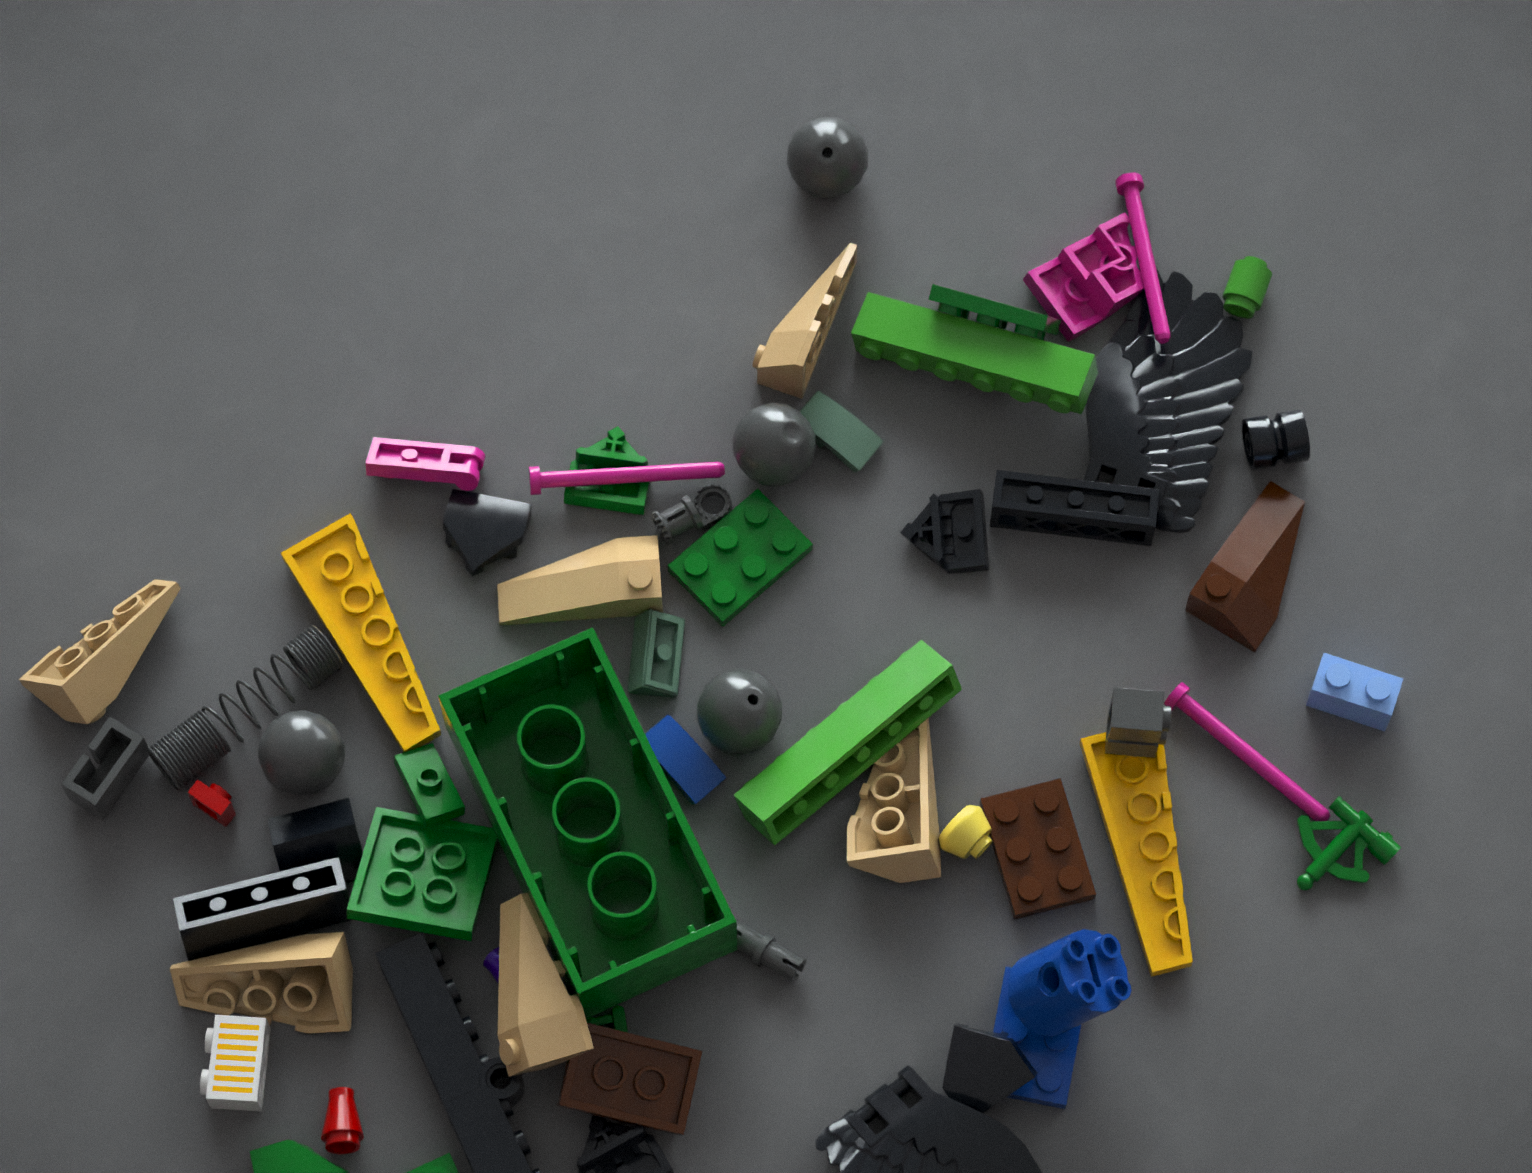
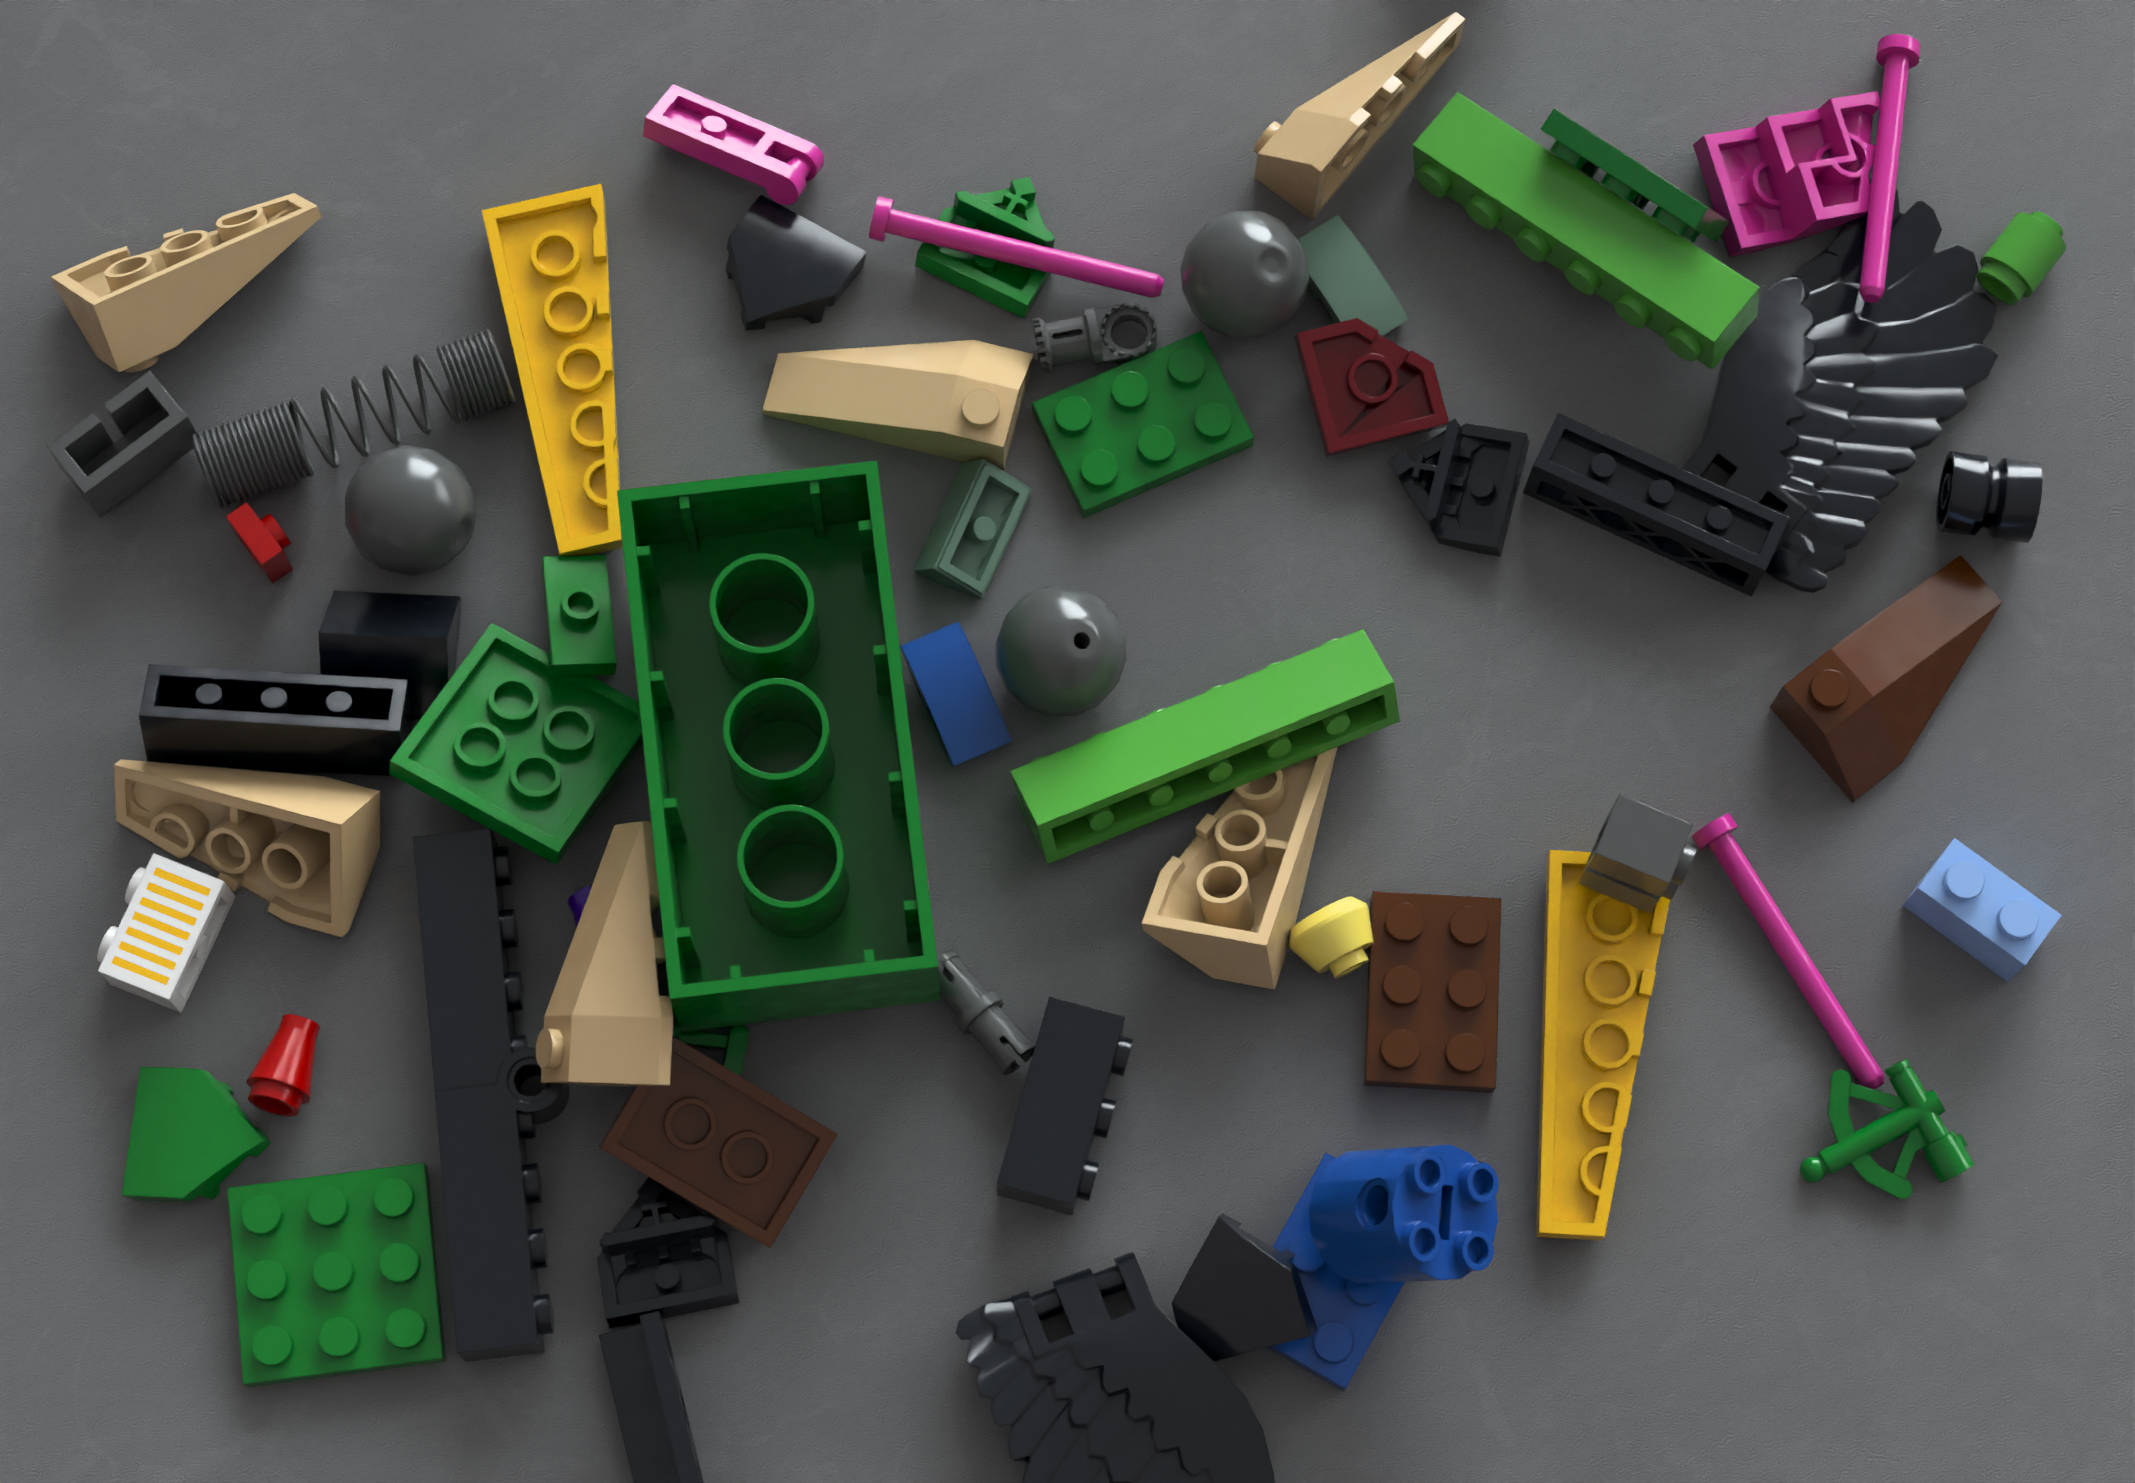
camera: 15 degrees right, 5 degrees up
(836, 990) = (1064, 1107): none -> black brick
(872, 491) = (1367, 387): none -> dark red plate

